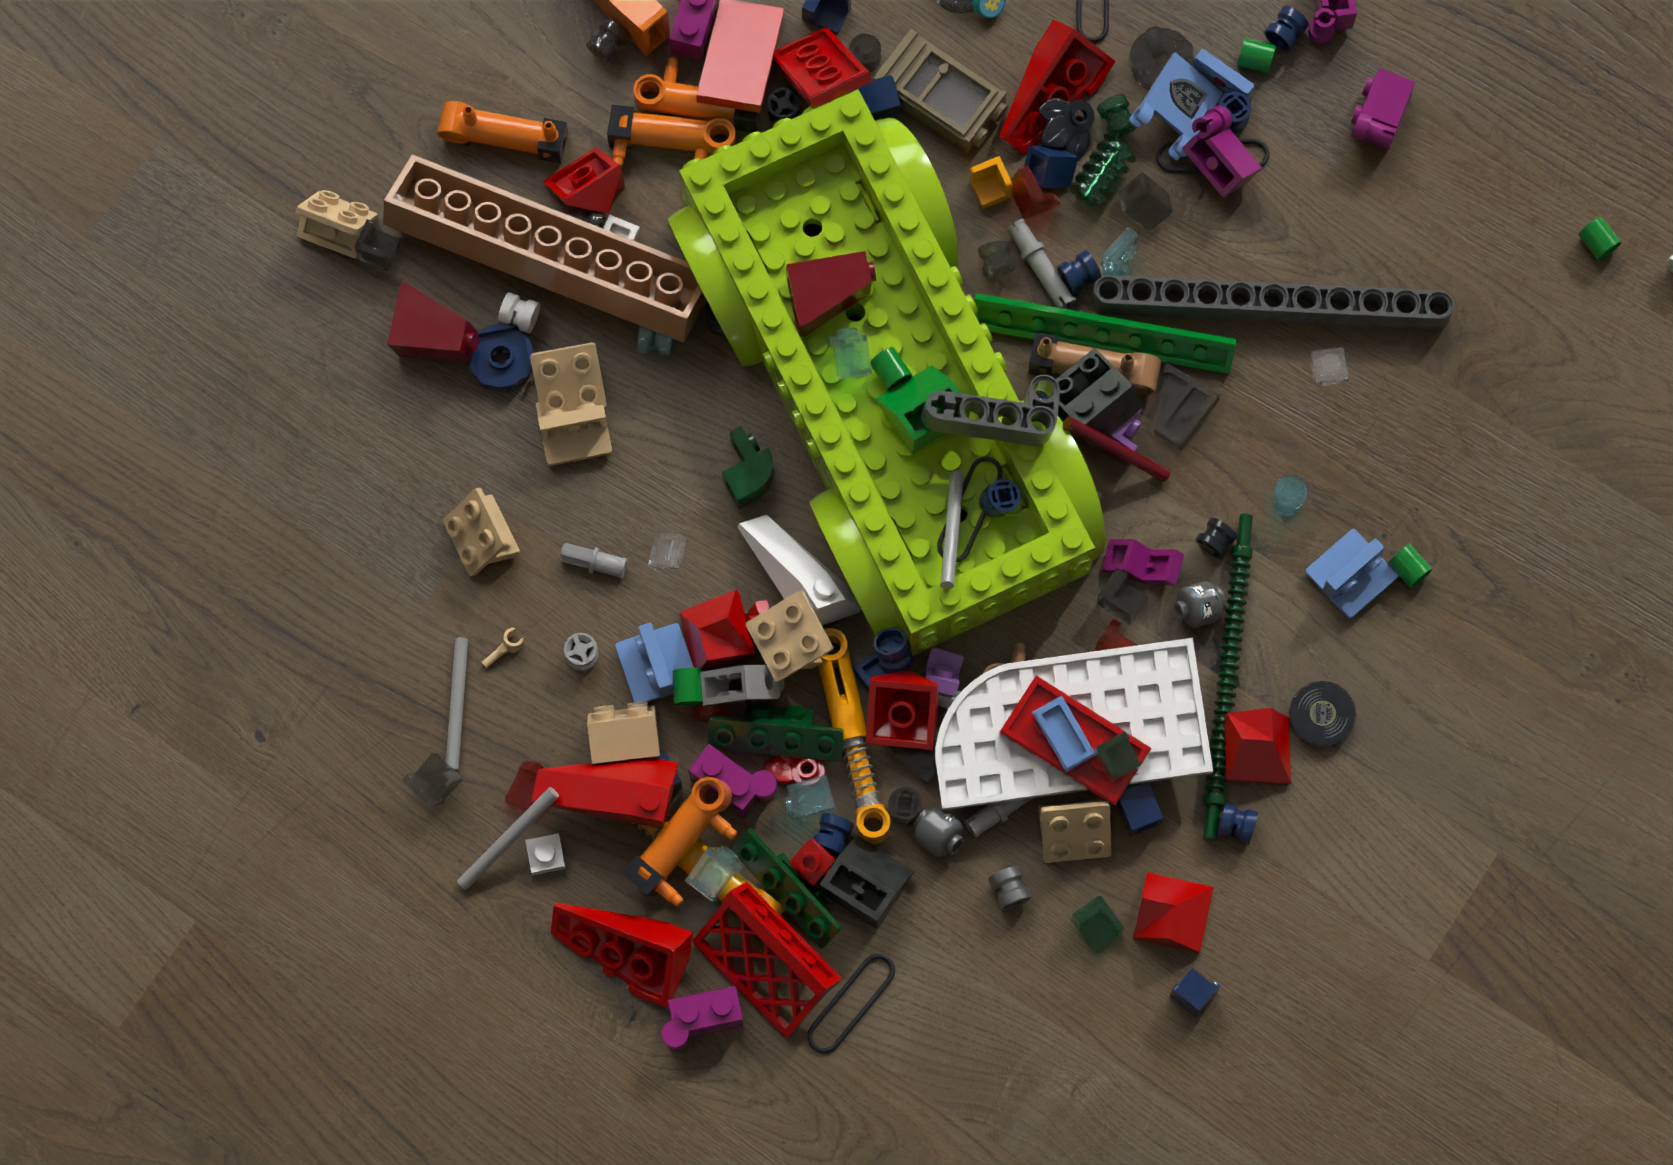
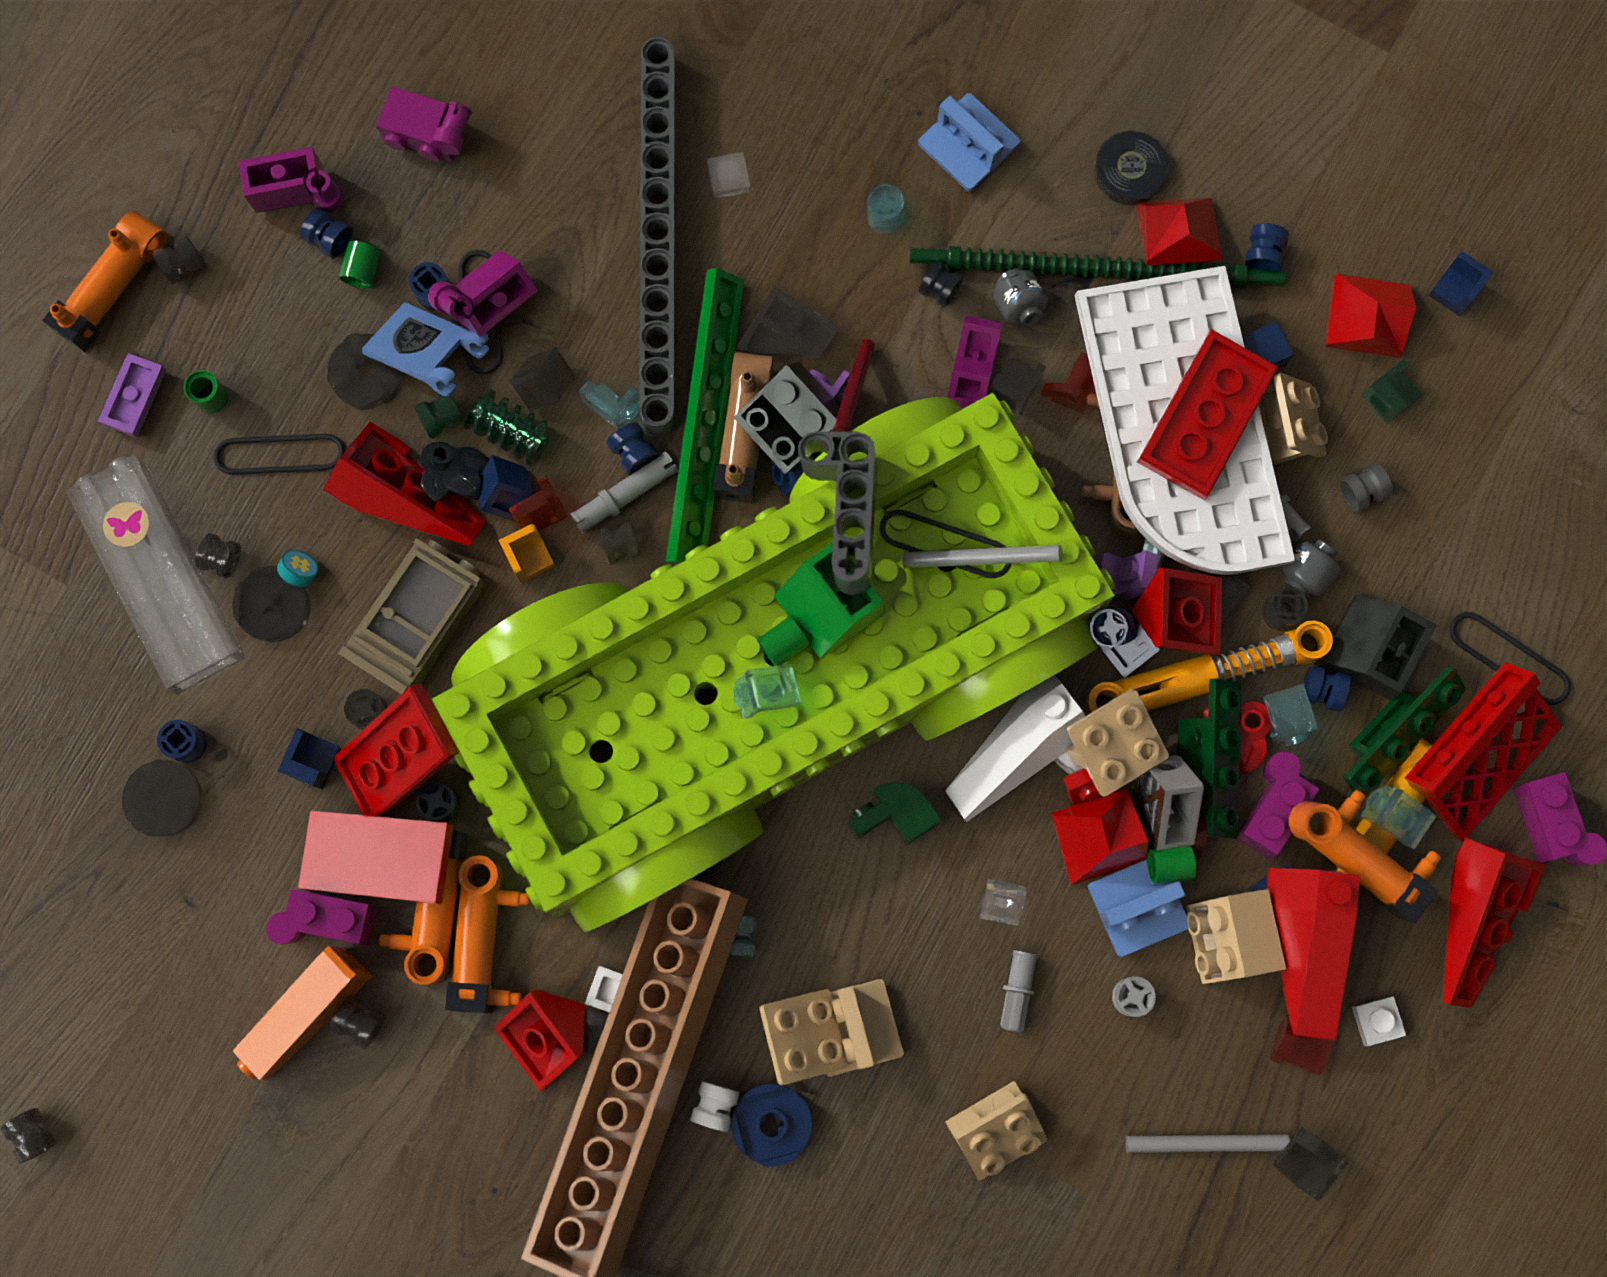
camera: 90 degrees left, 5 degrees up
(429, 329) = (744, 1216): dark red slope -> none
(464, 123) = (472, 1192): orange piece -> none
(505, 647) = (1136, 1094): tan hand -> none
(508, 838) = (1377, 1065): light grey bar -> none
(812, 862) = (1368, 706): red bracket -> none
(827, 287) = (685, 724): dark red slope -> none
(882, 98) = (428, 674): dark blue panel -> none
(993, 500) = (936, 515): dark blue wheel -> none
(1063, 734) = (1207, 423): medium blue tile -> none
(1117, 757) = (1232, 362): clear green panel -> none
(1221, 74) = (386, 299): medium blue tile -> none
(1410, 566) = (957, 78): green beam -> none

